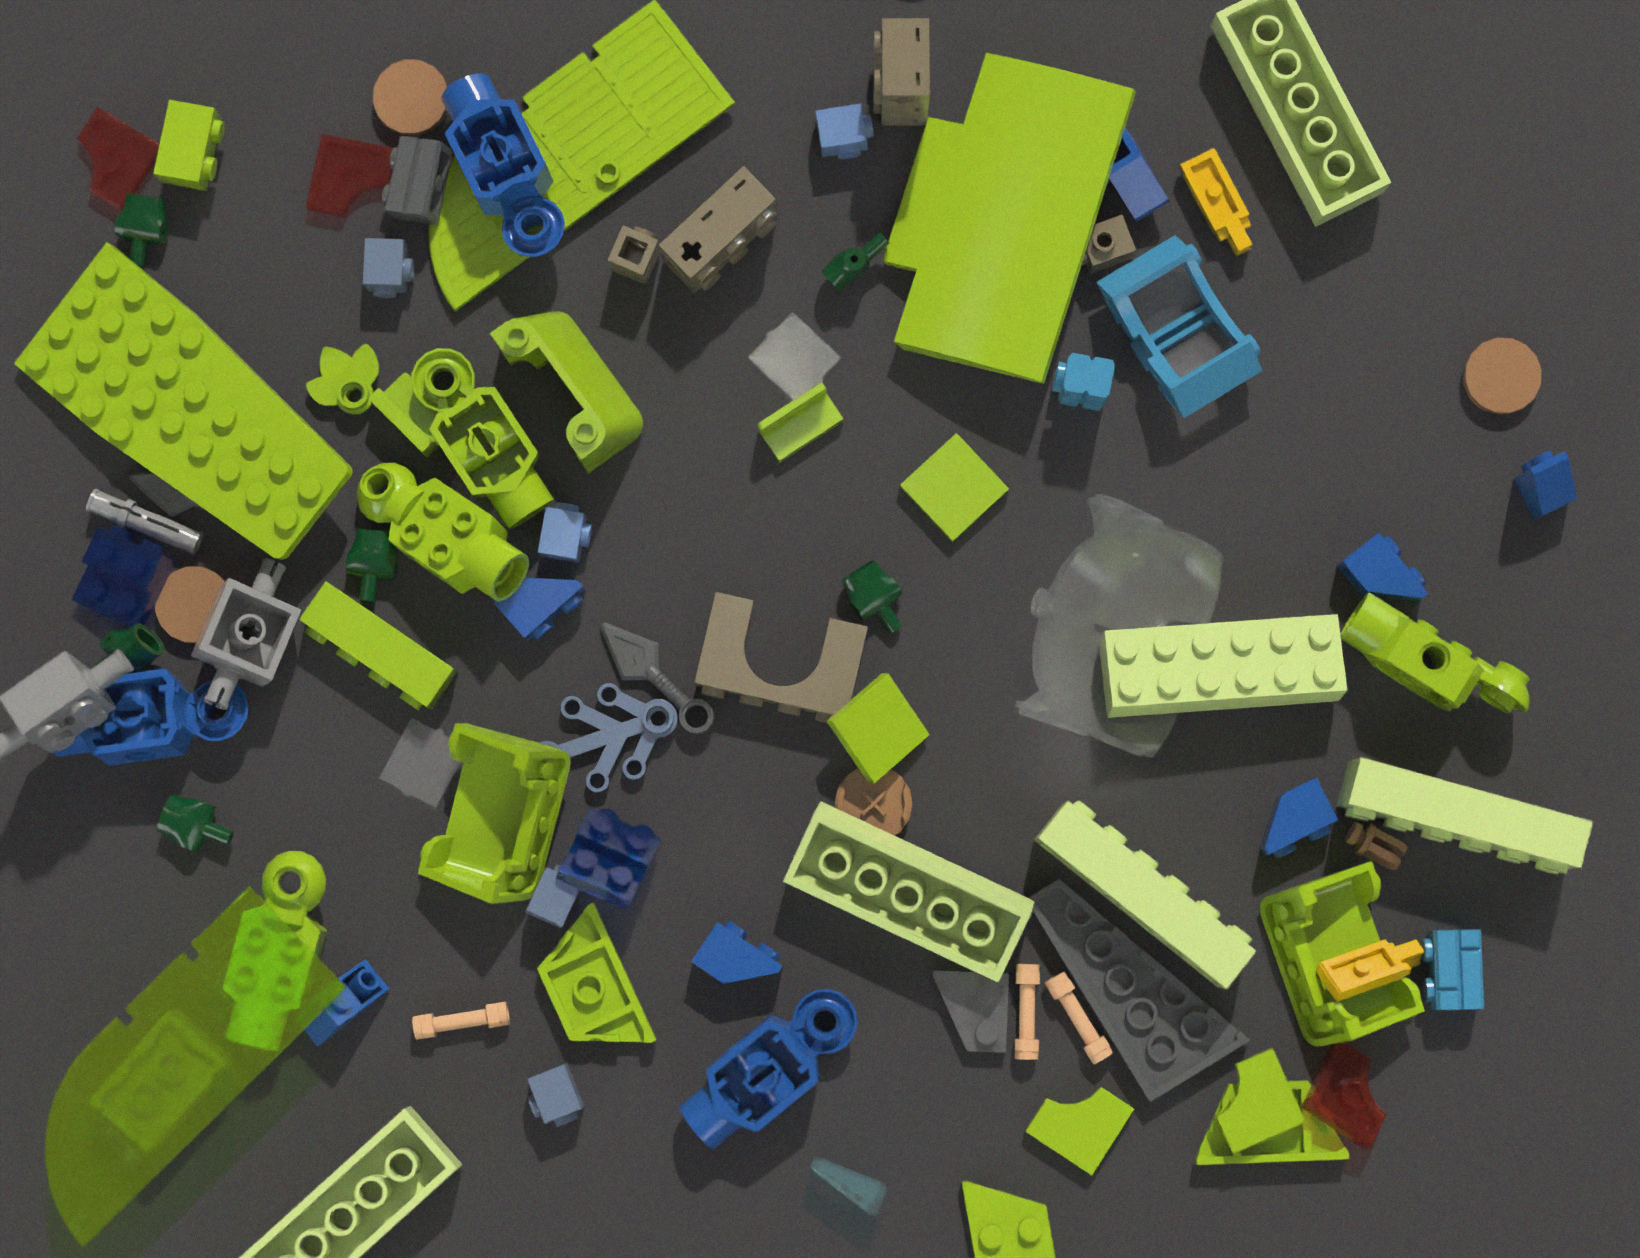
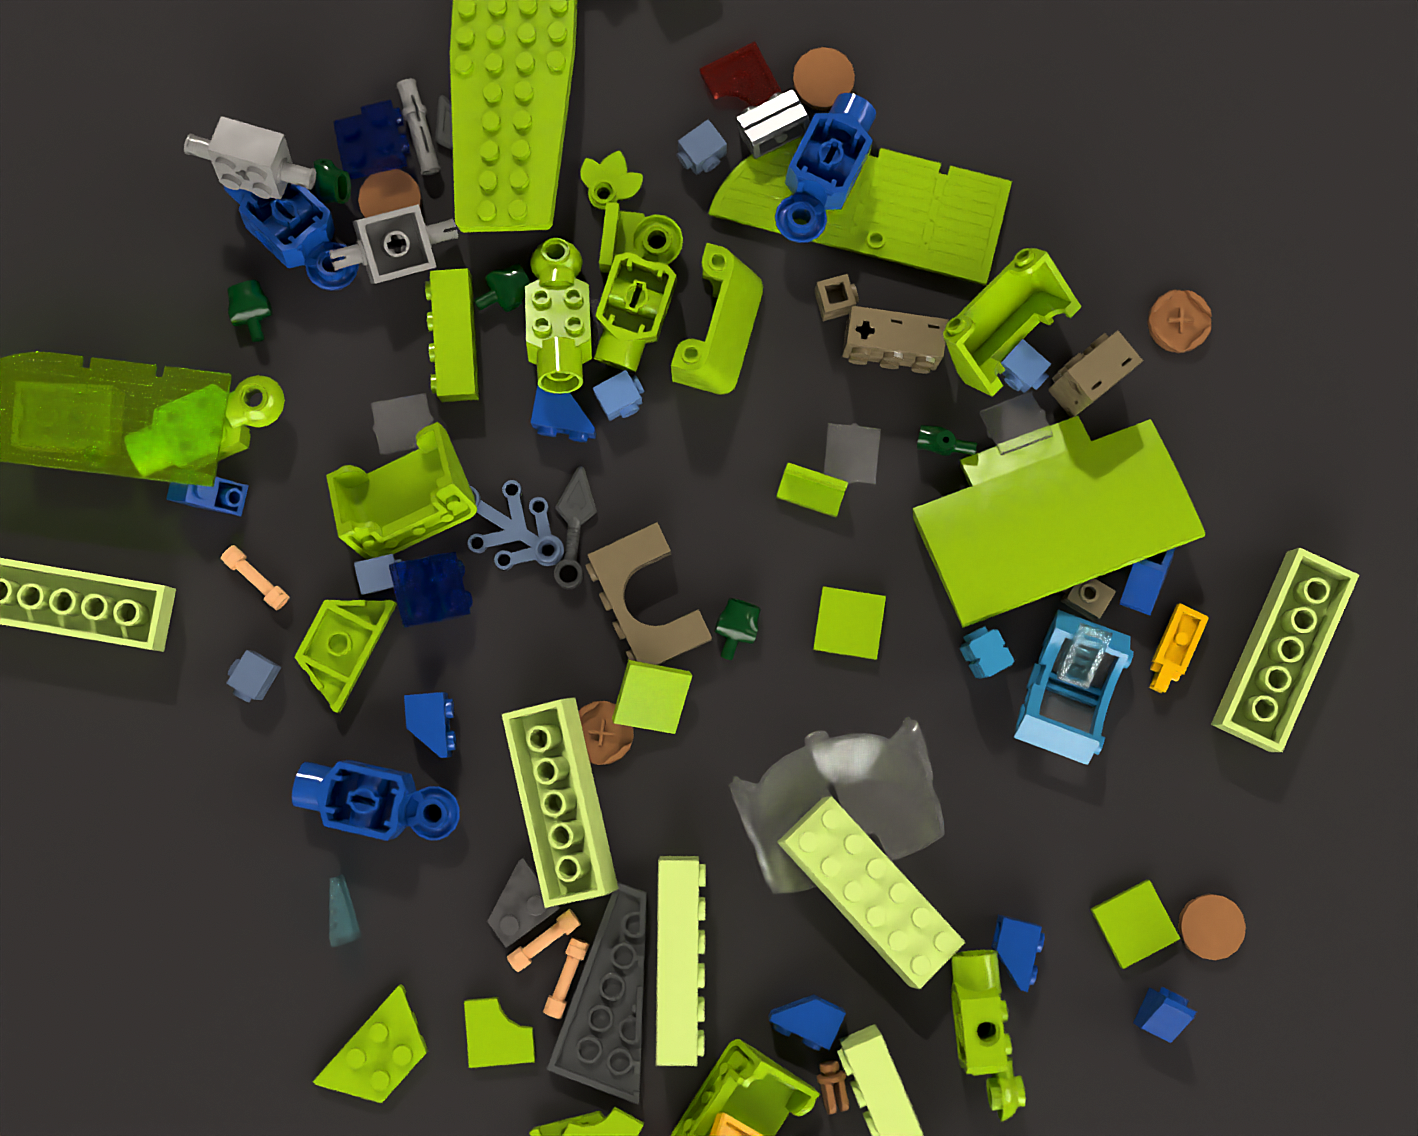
camera: 45 degrees right, 0 degrees up
(780, 110) = (1004, 314): none -> lime windscreen
(890, 180) = (1016, 423): none -> clear piece
(1170, 314) = (1077, 675): none -> clear light blue slope
(1444, 445) = (1135, 924): none -> lime tile

